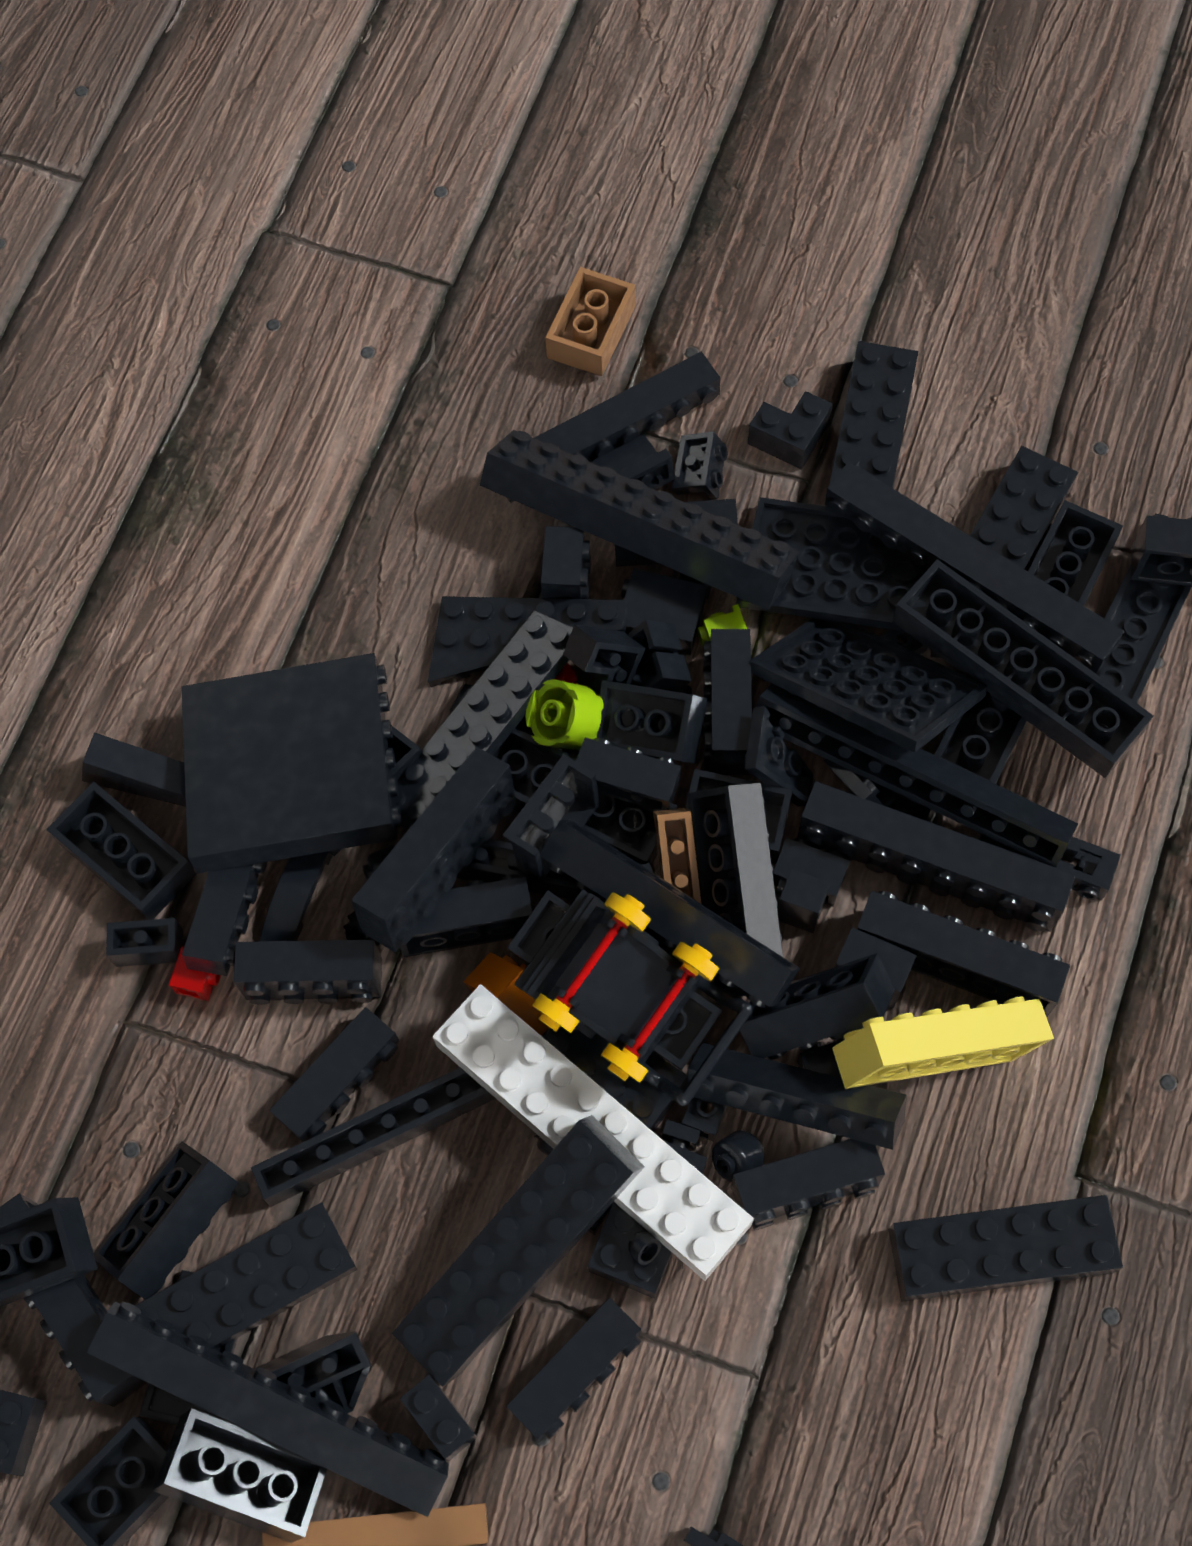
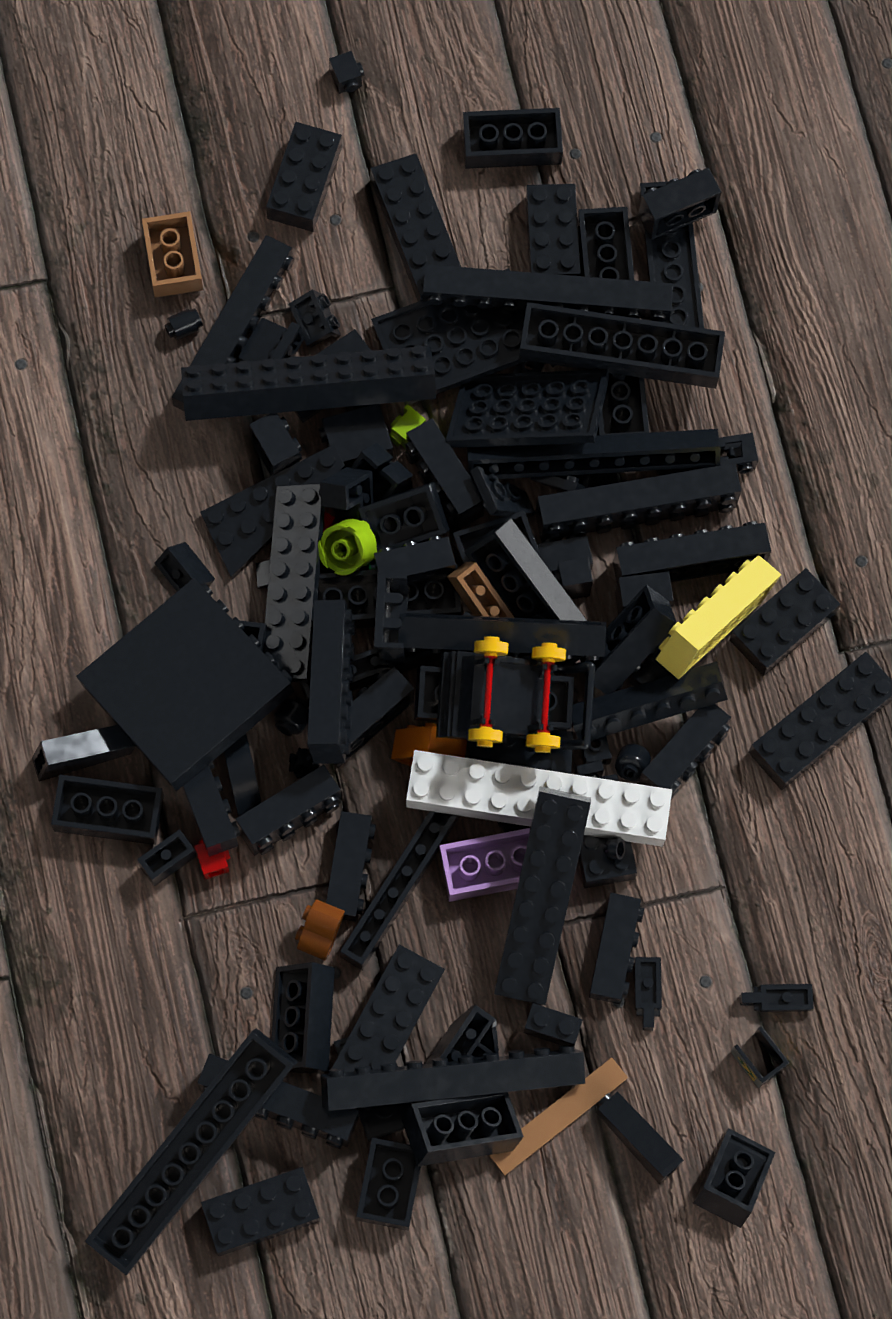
camera: 40 degrees left, 5 degrees up
(250, 1127) = (319, 929): none -> dark orange brick
(389, 640) = (181, 565): none -> black panel
(477, 1165) = (483, 864): none -> lavender brick
(556, 397) = (183, 324): none -> black brick
(581, 1446) = (648, 990): none -> black hinge
(783, 317) = (304, 176): none -> black brick
(790, 435) = (364, 262): black brick -> none
(898, 239) = (346, 72): none -> black brick
(1027, 1098) = (784, 622): none -> black brick
(1037, 392) = (512, 138): none -> black brick

